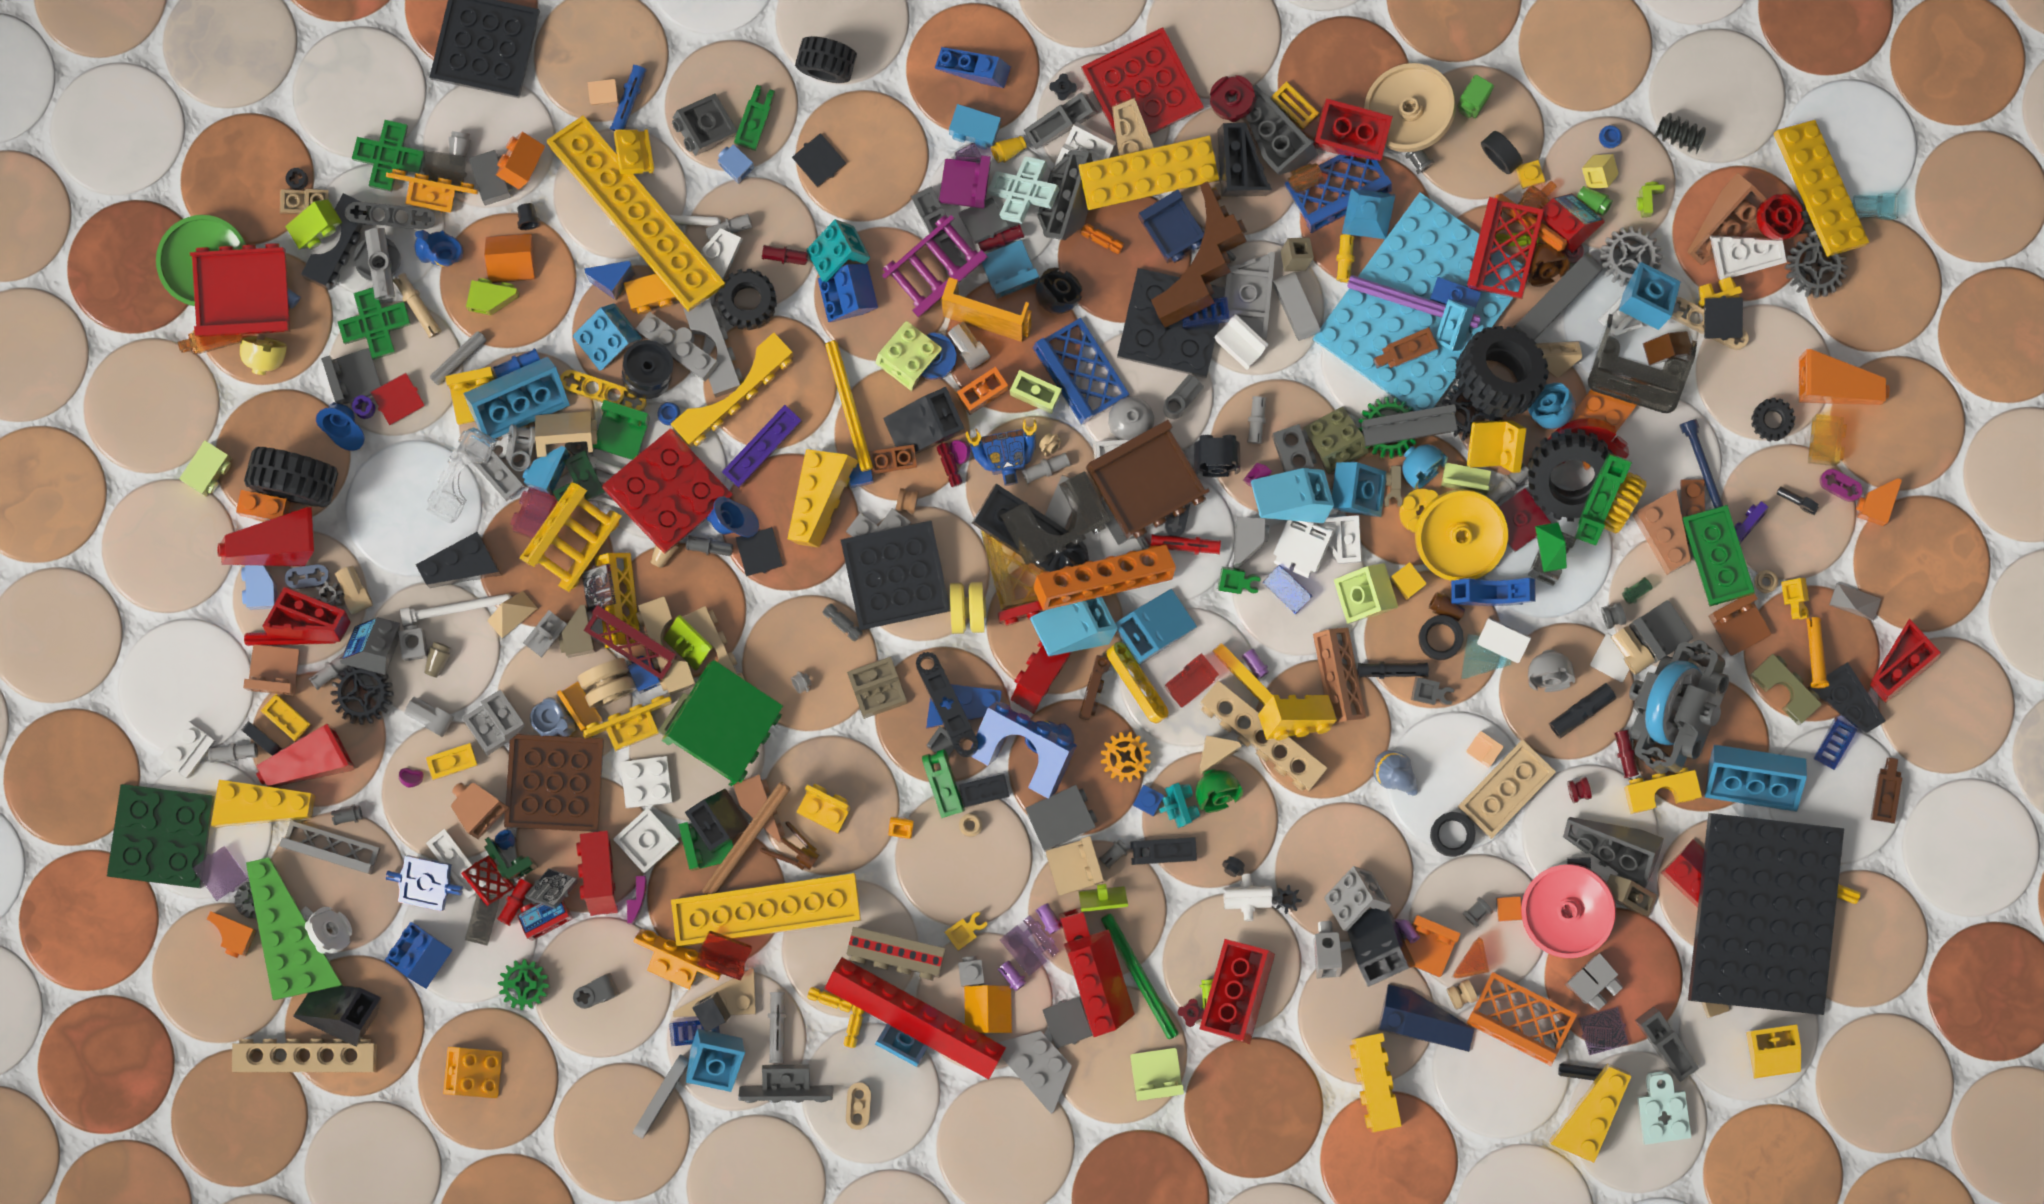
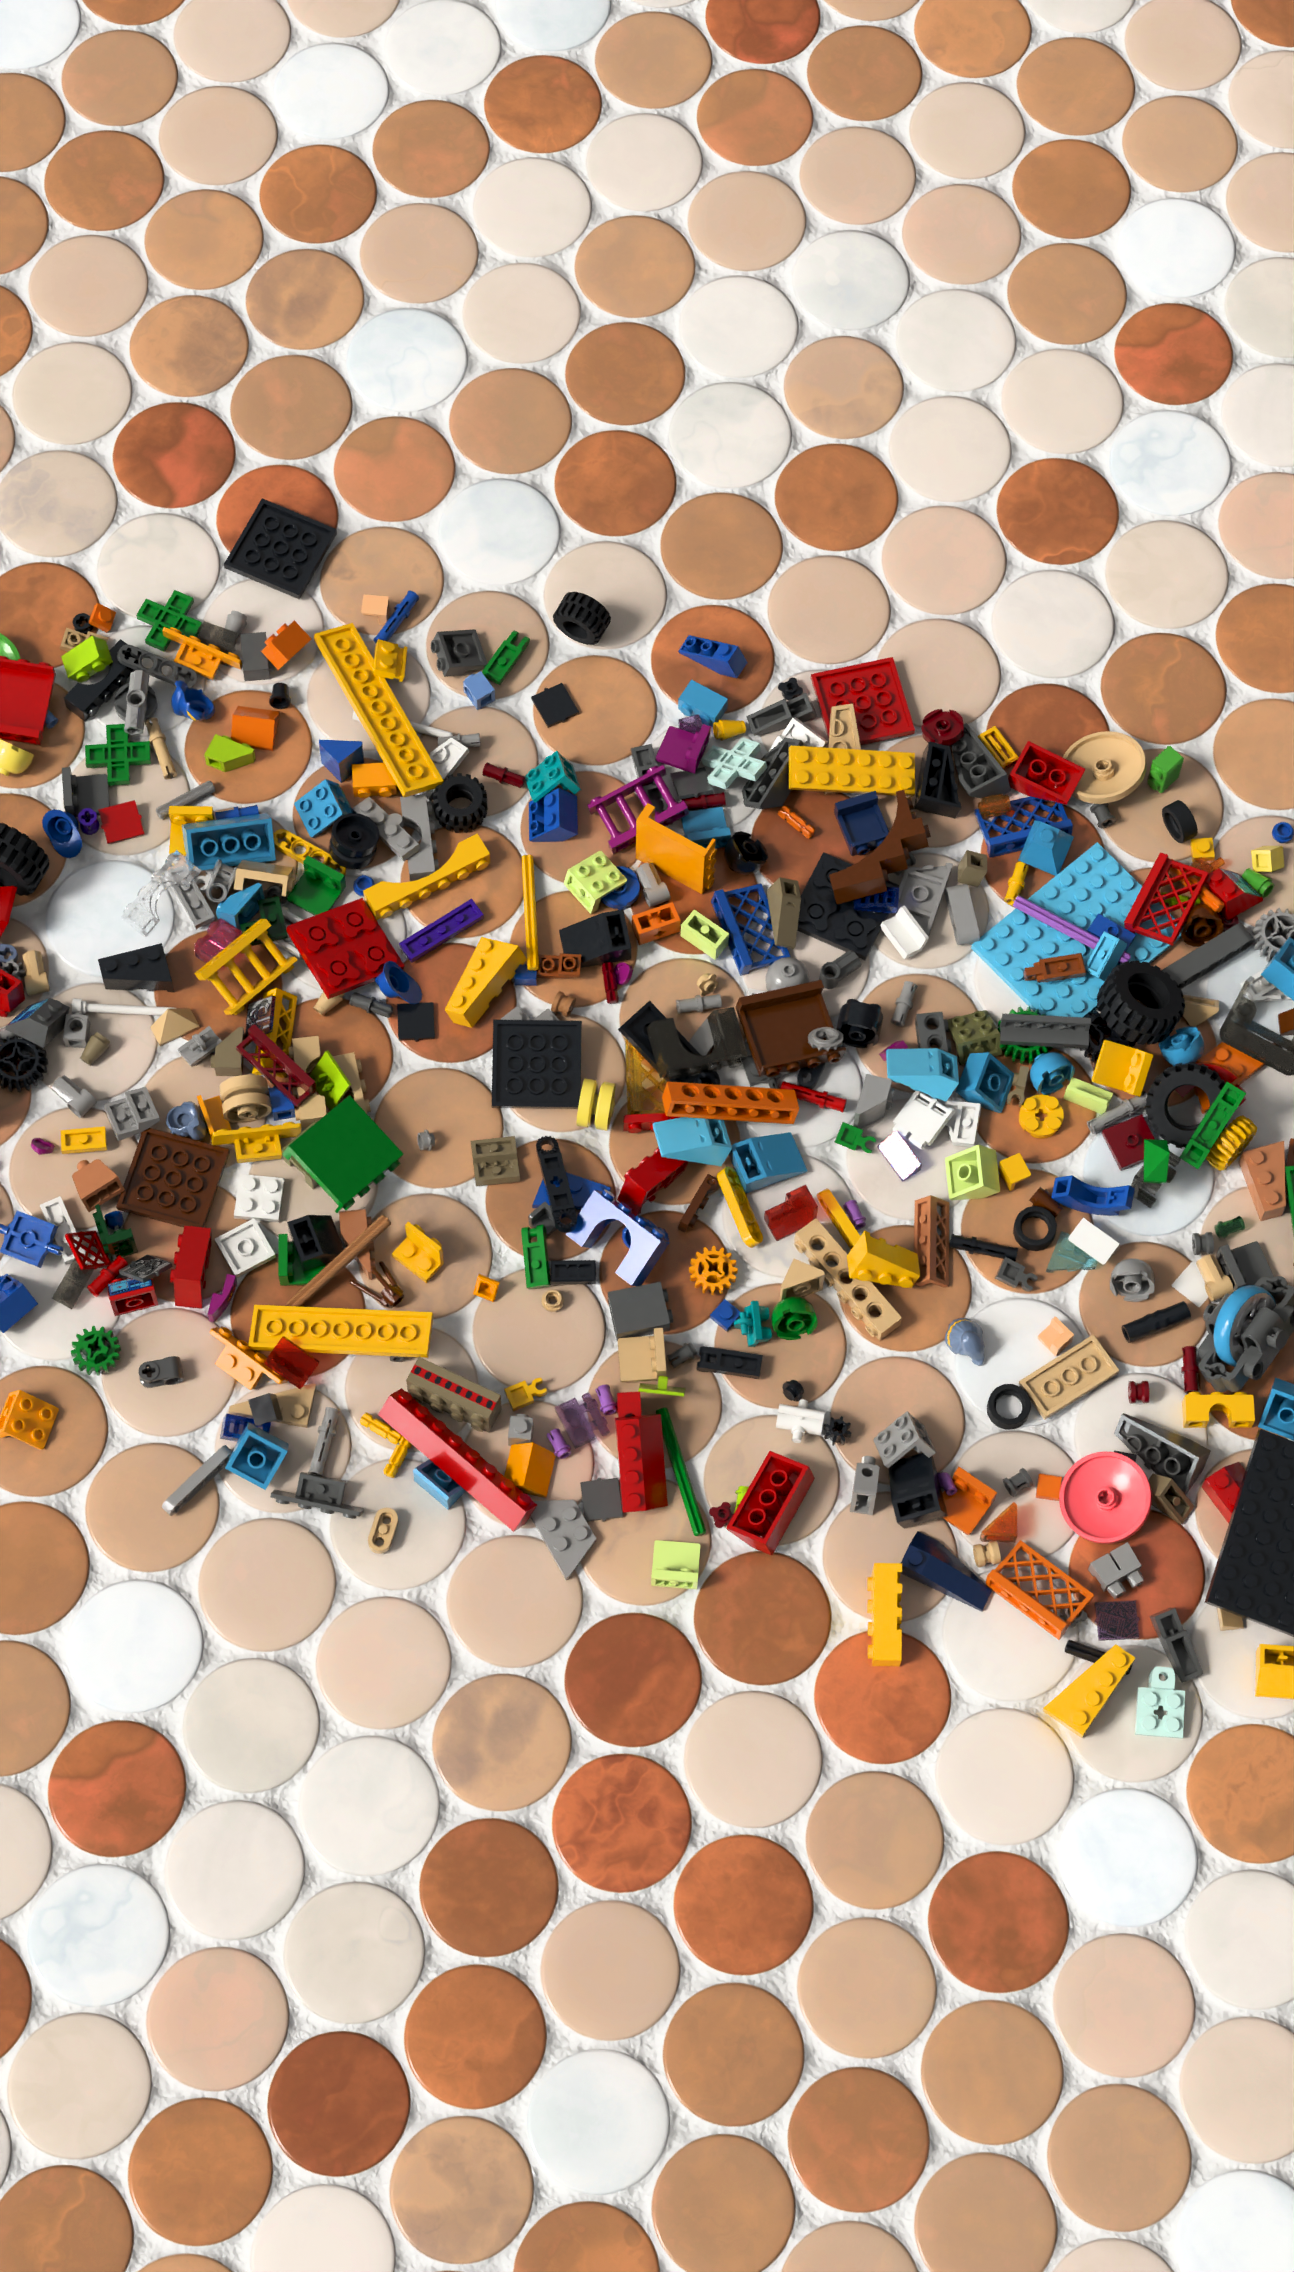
camera: 10 degrees right, 15 degrees down
(316, 168) = (102, 617): none -> orange plate
(842, 622) = (477, 1097): dark grey axle -> none
(1005, 451) = (664, 980): torso -> none
(1113, 348) = (784, 909): none -> dark tan slope
(1192, 477) = (833, 1038): none -> light grey gear
(1461, 535) = (1073, 1139): yellow dish -> none

